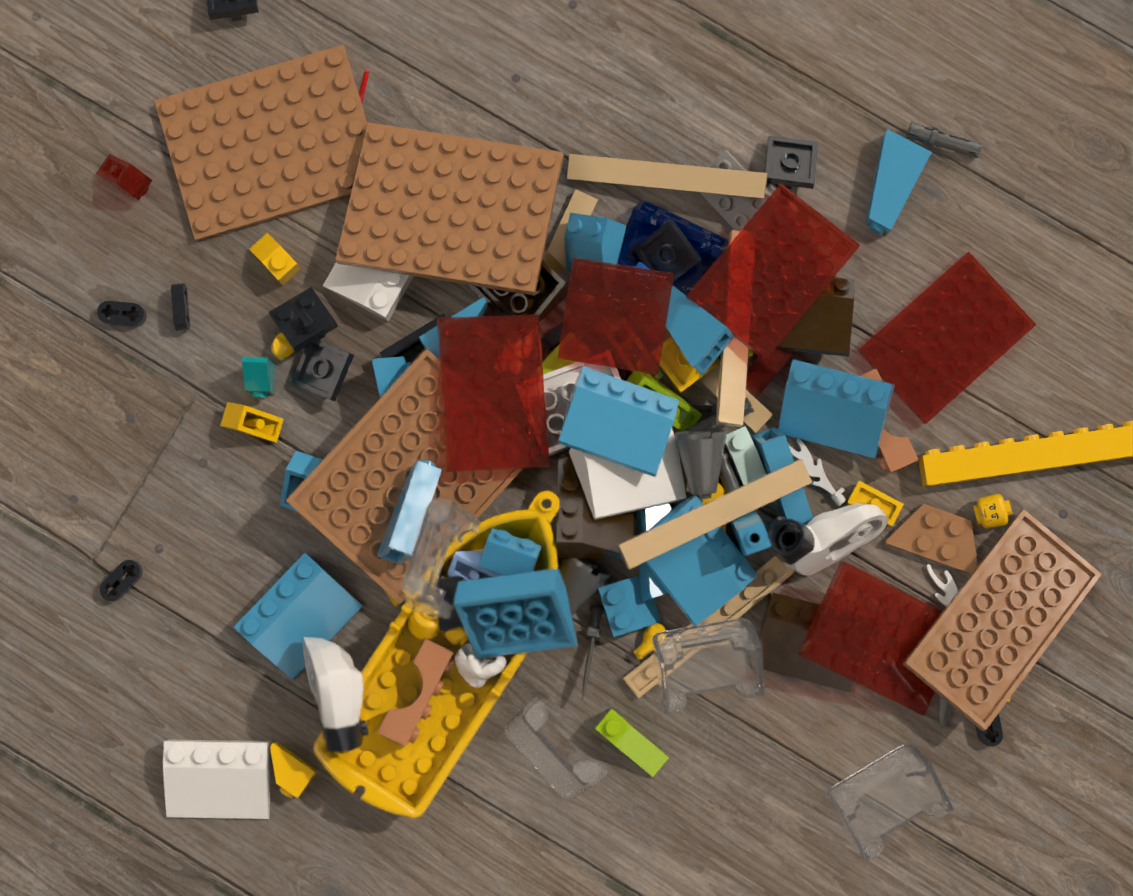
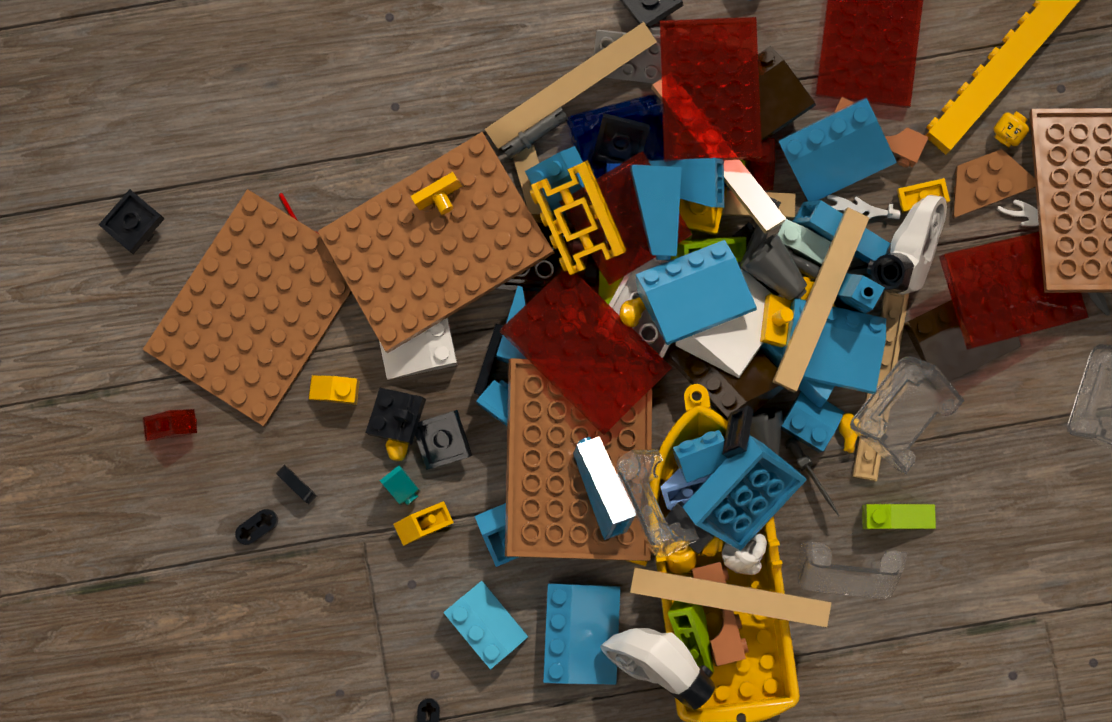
camera: 40 degrees left, 0 degrees up
(230, 543) = (485, 624): none -> medium azure slope
(382, 687) = (691, 628): none -> lime slope
(434, 687) = (730, 597): none -> tan tile
(483, 169) = (437, 194): none -> yellow tile
(552, 559) = (738, 432): none -> black tile
(556, 395) = (631, 312): none -> yellow animal
(595, 286) = (597, 209): none -> yellow fence
(605, 190) = (534, 133): none -> dark grey pin
(650, 324) = (659, 203): none -> dark azure slope
(665, 500) = (776, 320): none -> yellow tile

